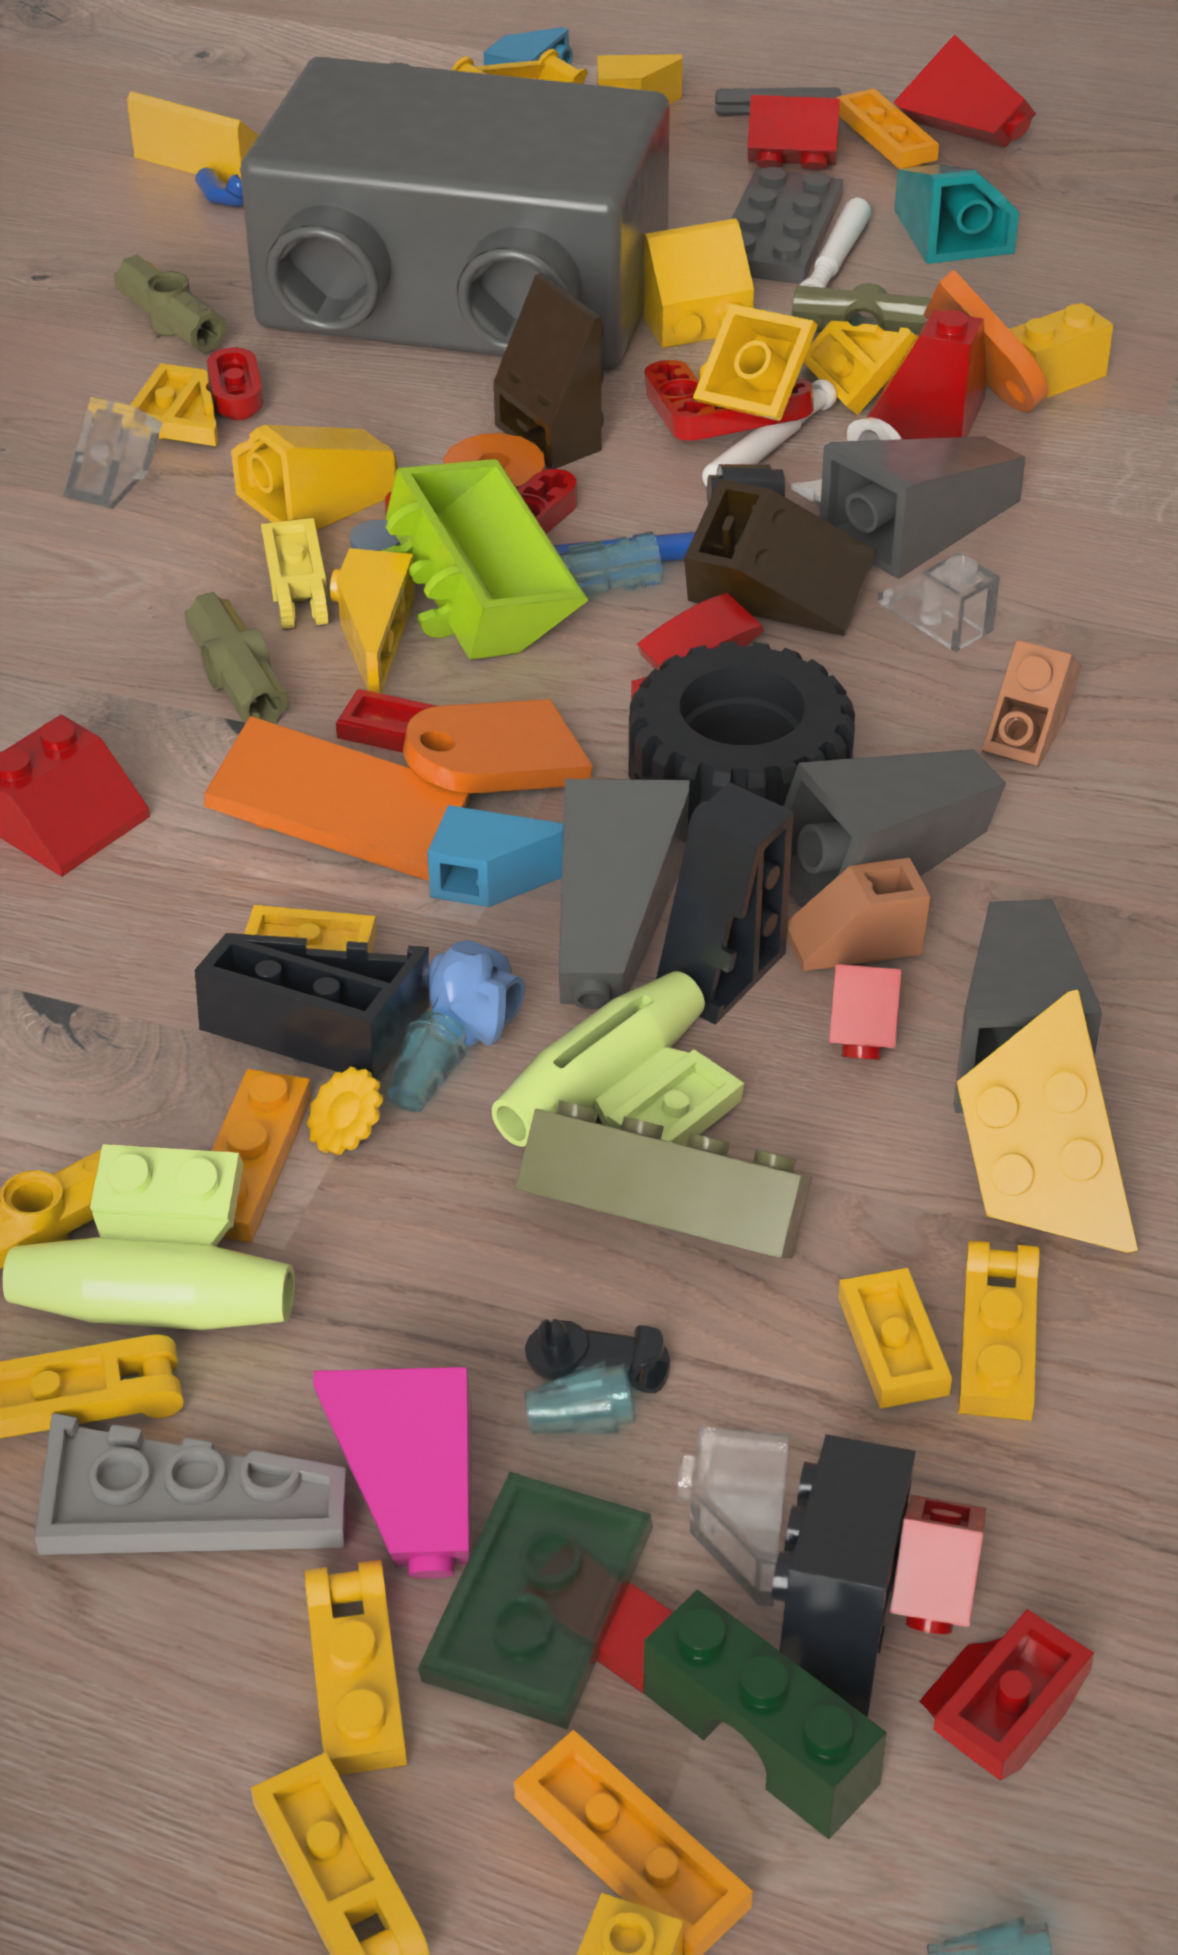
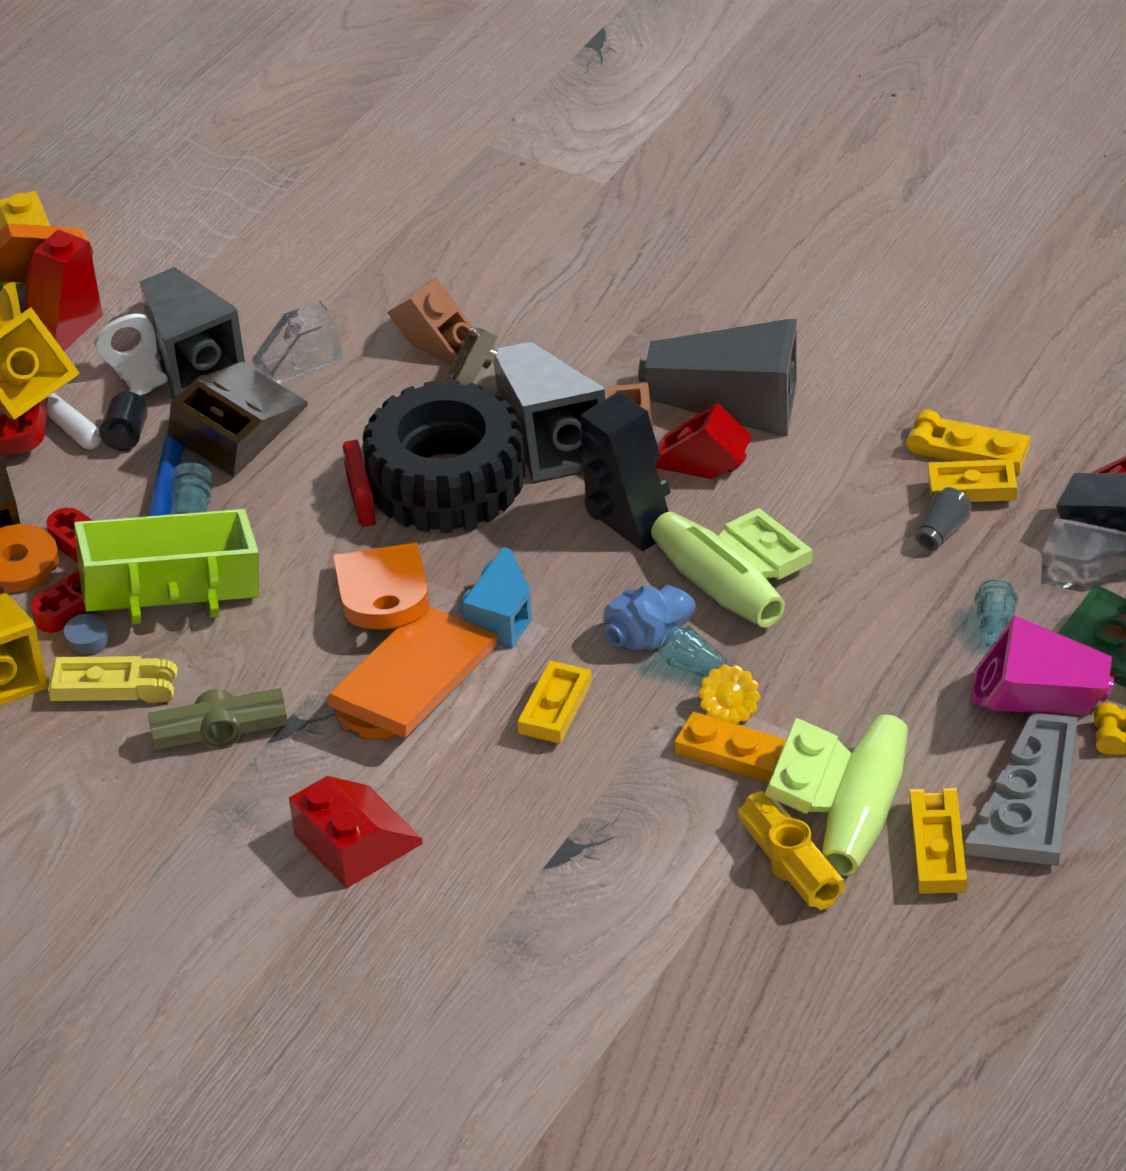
camera: 75 degrees left, 0 degrees up
(312, 1002) = (637, 691): black wedge -> none
(374, 608) = (199, 635): yellow slope -> none
(377, 719) = (319, 643): red tile -> none
(566, 1347) = (953, 613): black piece -> none
(617, 876) = (571, 537): dark grey slope -> none
(665, 1182) = (842, 548): brick -> none
(704, 624) = (297, 468): red slope -> none
(791, 1309) = (943, 517): none -> dark grey cone
(939, 729) = (475, 352): none -> dark tan plate
(1046, 1133) = (852, 378): yellow wing -> none

